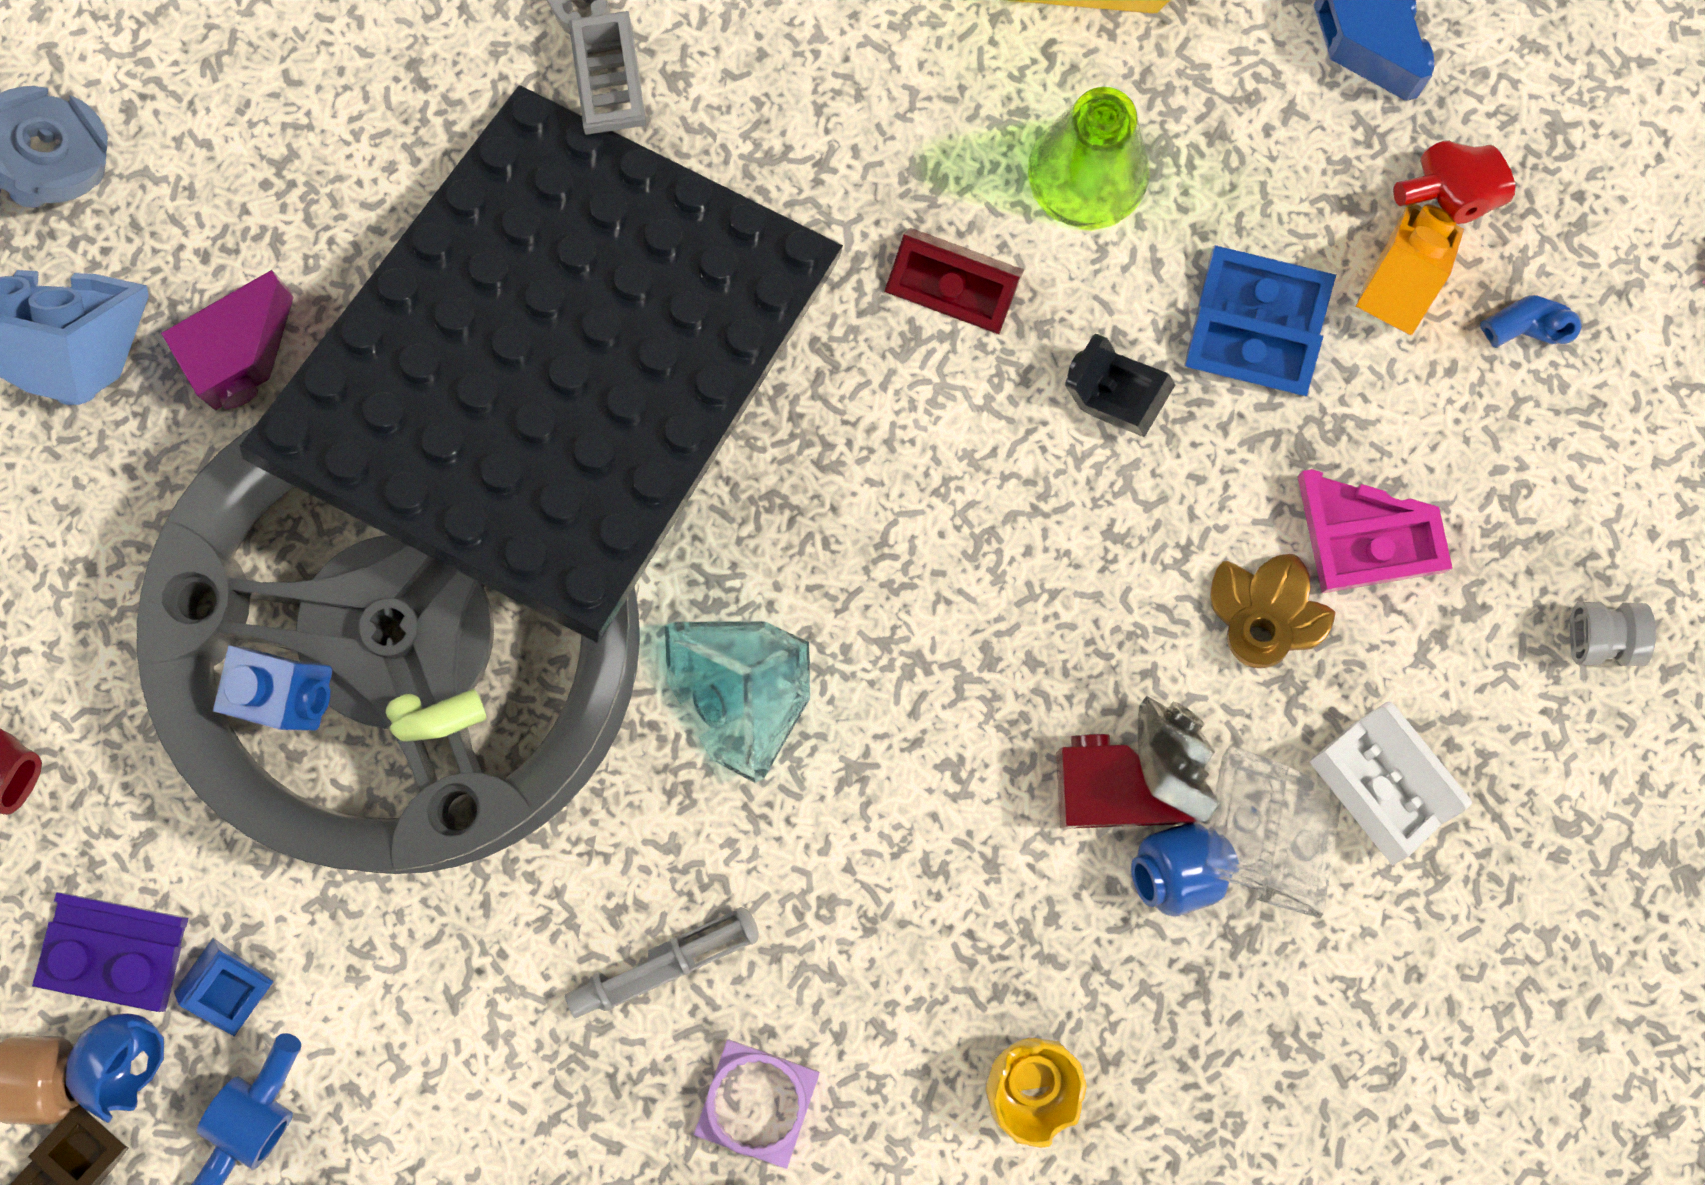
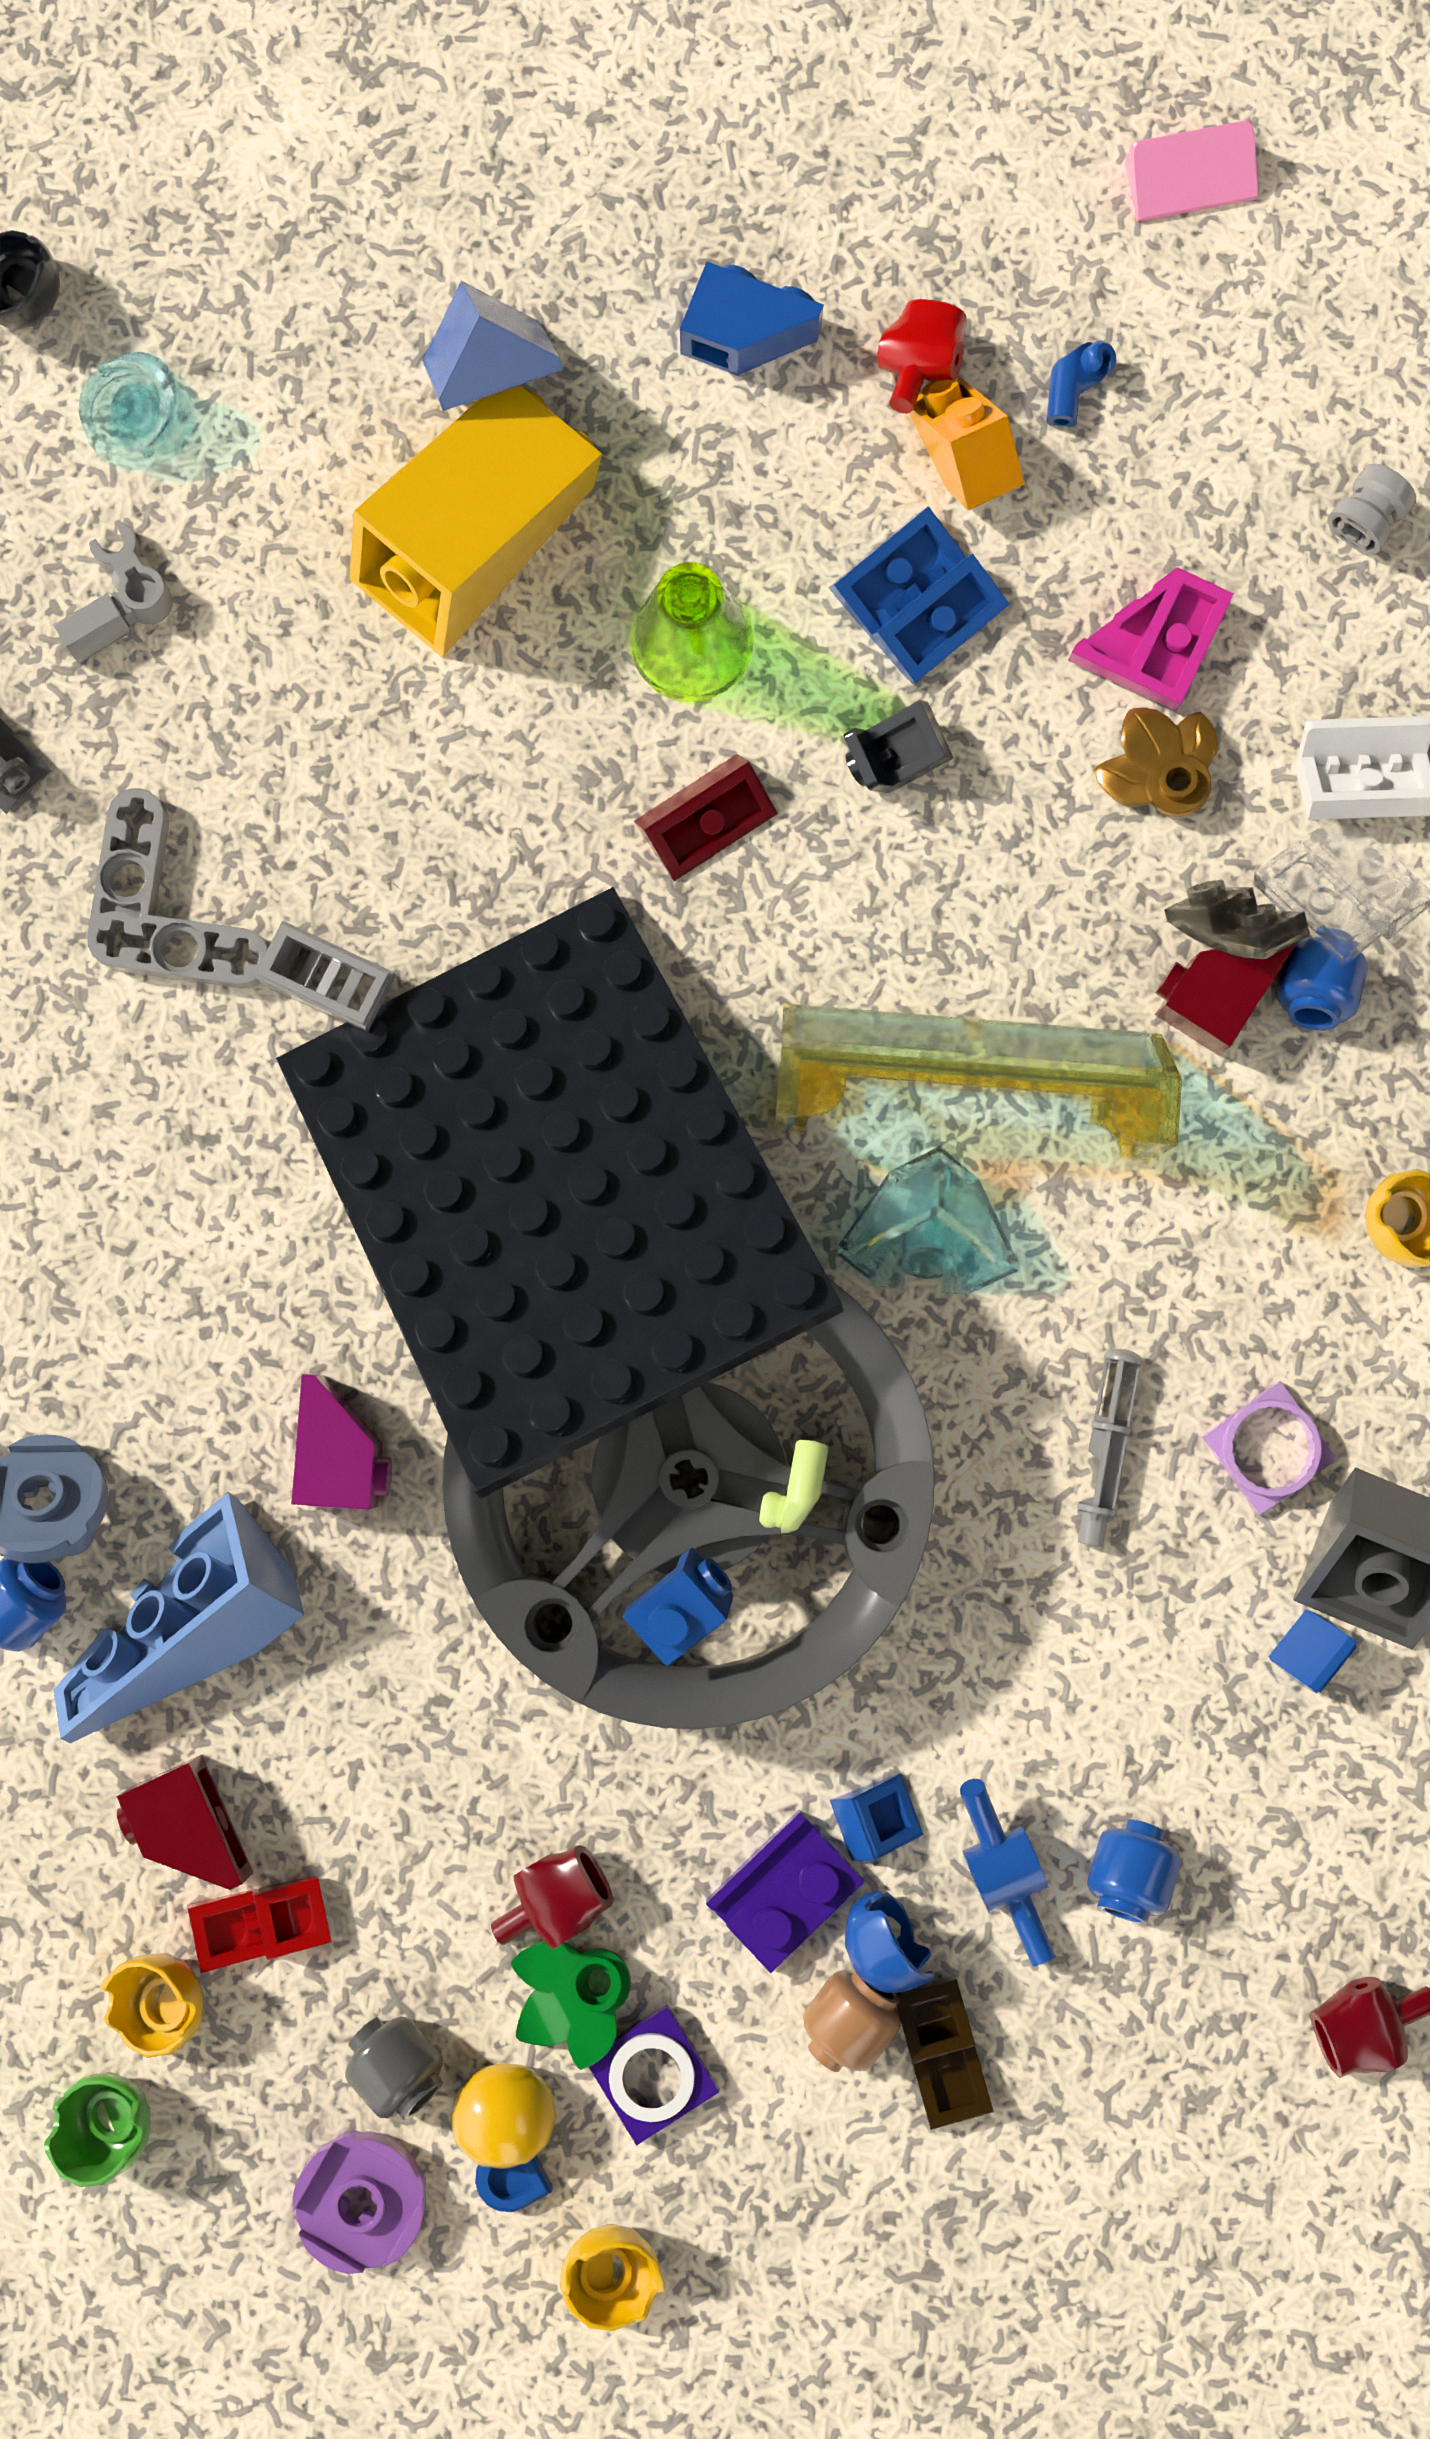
camera: 55 degrees left, 5 degrees up
(826, 496) = (1124, 1072): none -> clear yellow windscreen

